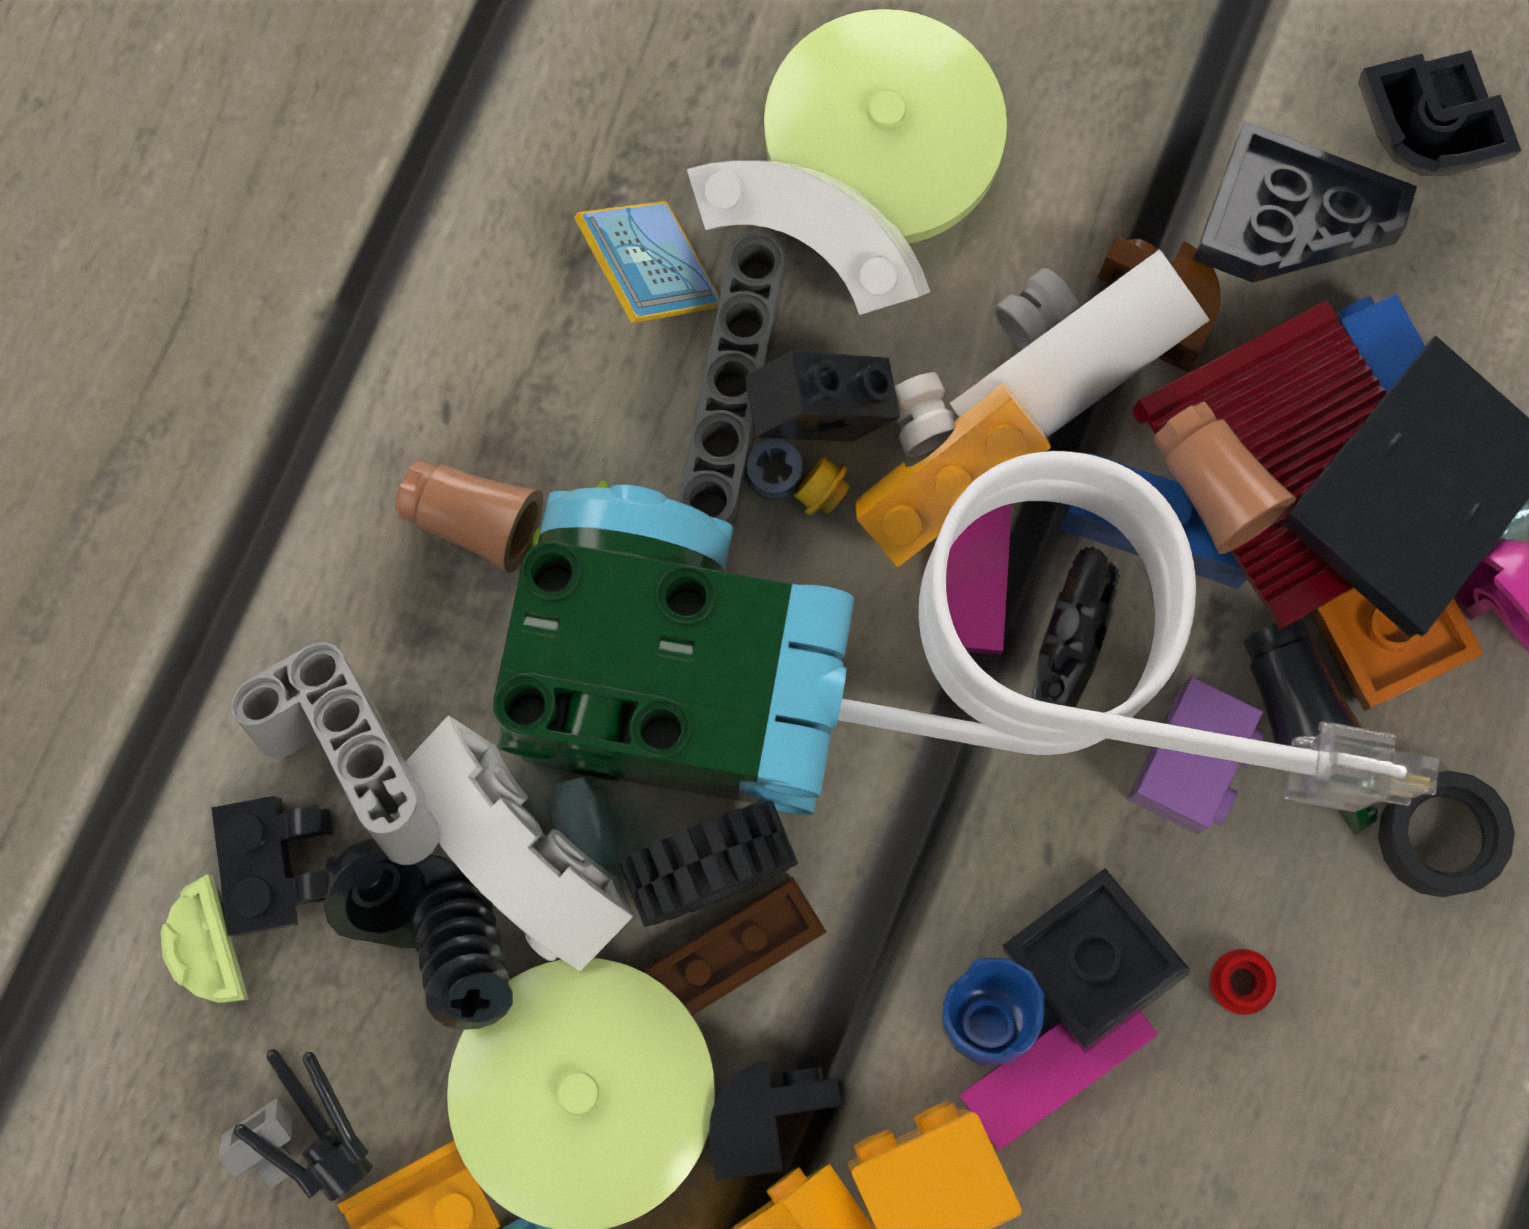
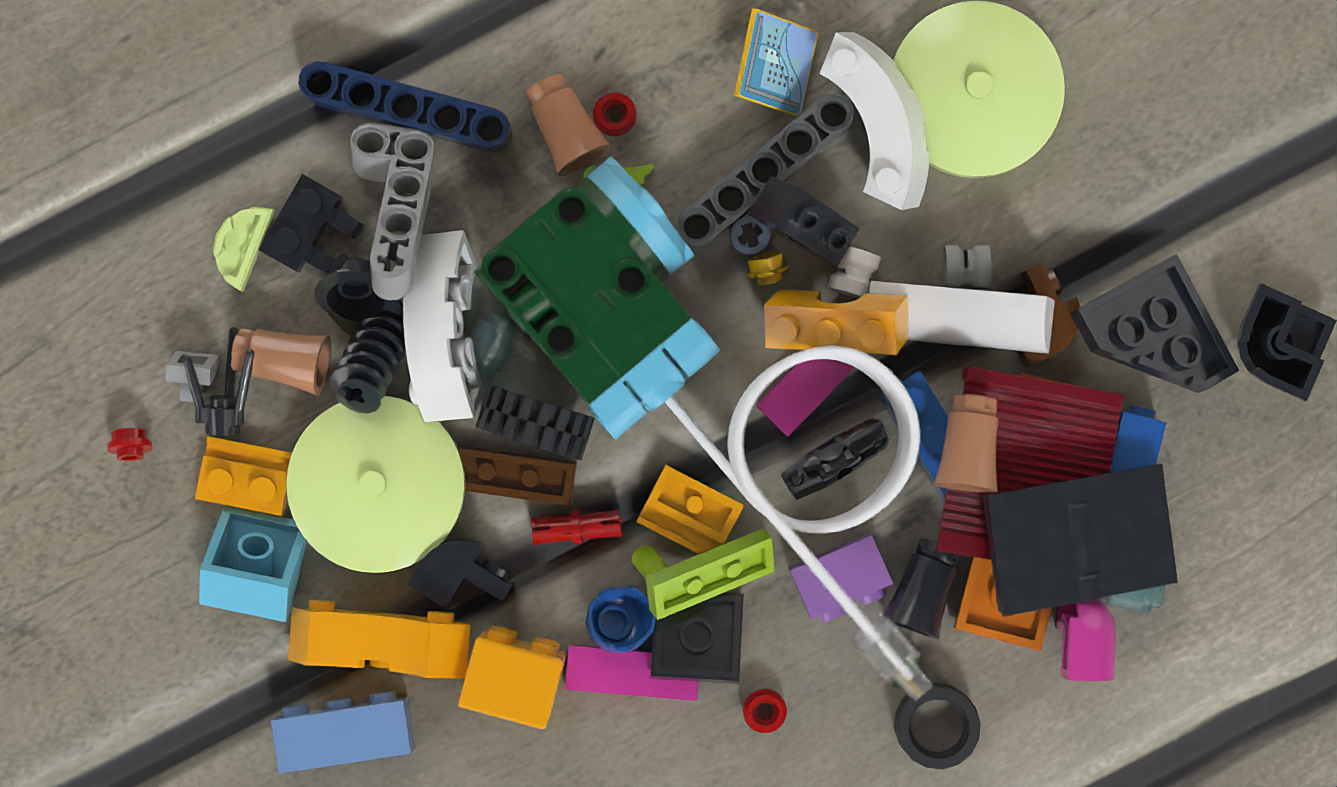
camera: 40 degrees right, 10 degrees up
(241, 635) = (387, 95): none -> dark blue beam
(357, 1033) = (285, 358): none -> nougat plant
(515, 441) = (611, 100): none -> red plate
(854, 949) = (576, 527): none -> red pin
(968, 826) = (689, 512): none -> light orange plate
(1044, 880) = (705, 574): none -> lime piece

